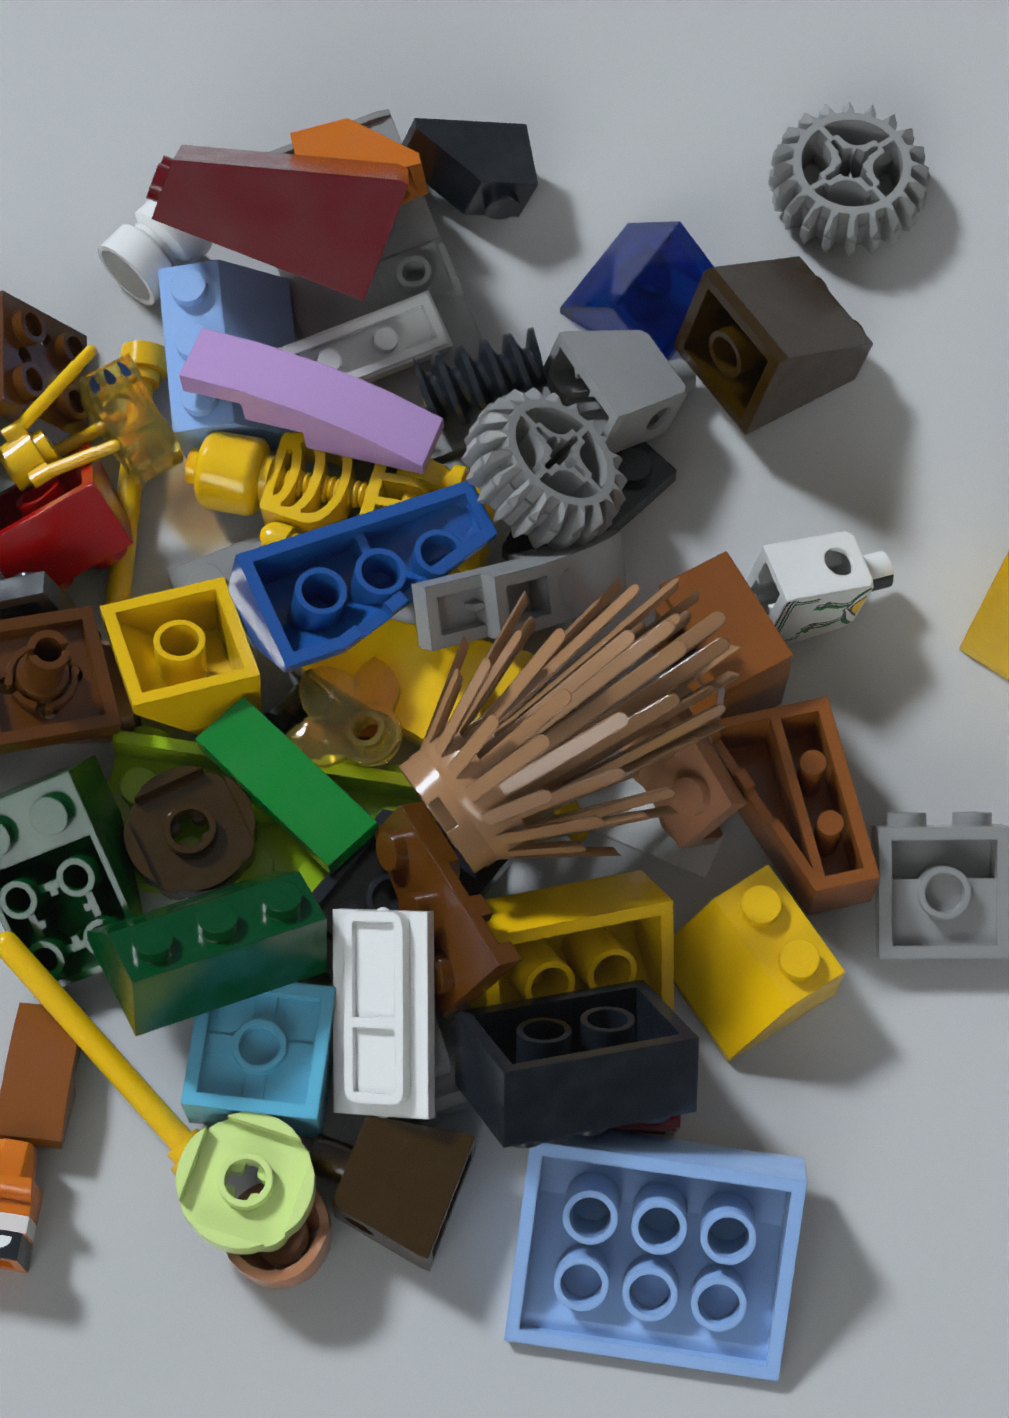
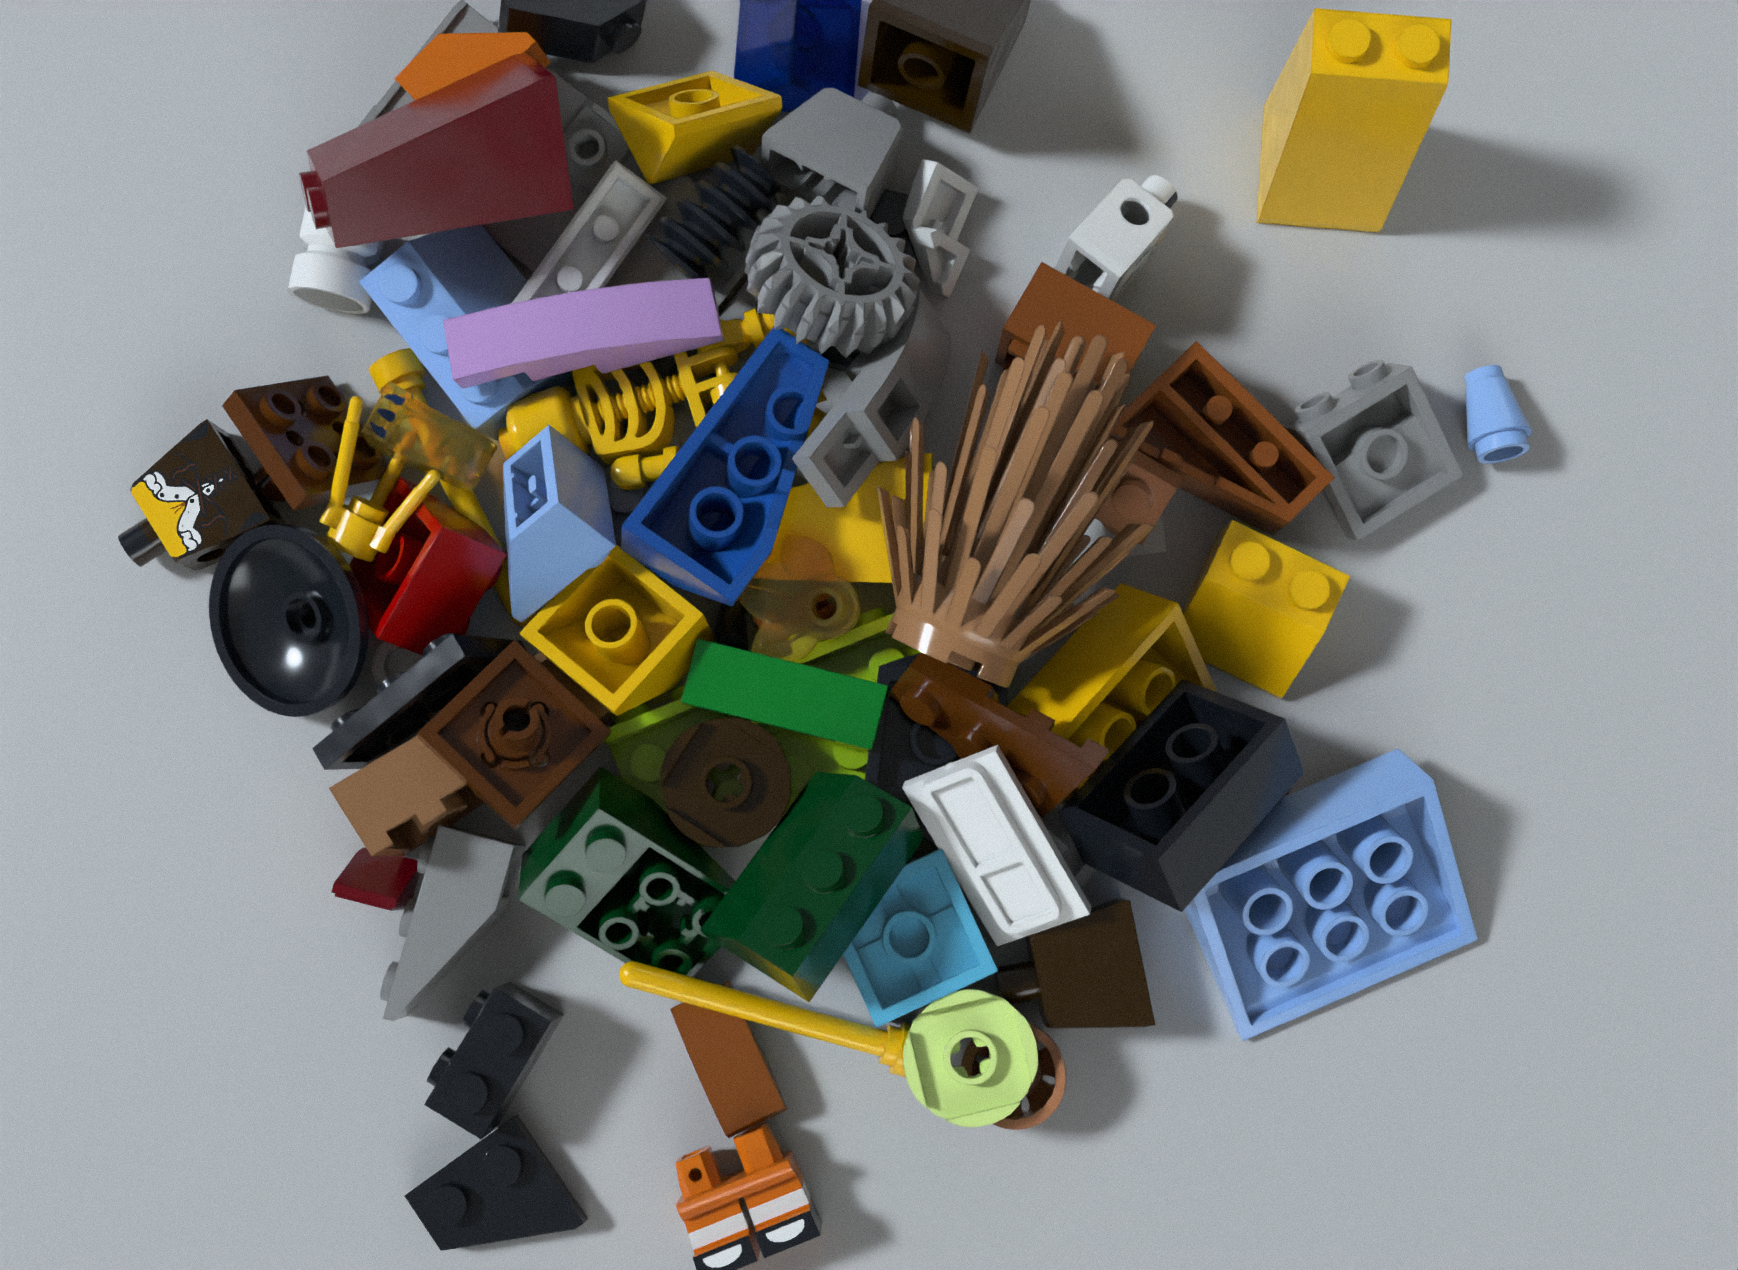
camera: 30 degrees left, 15 degrees up
(186, 533) = (553, 519): none -> light blue slope
(504, 296) = (692, 122): none -> yellow slope
(672, 488) = (934, 221): none -> white slope

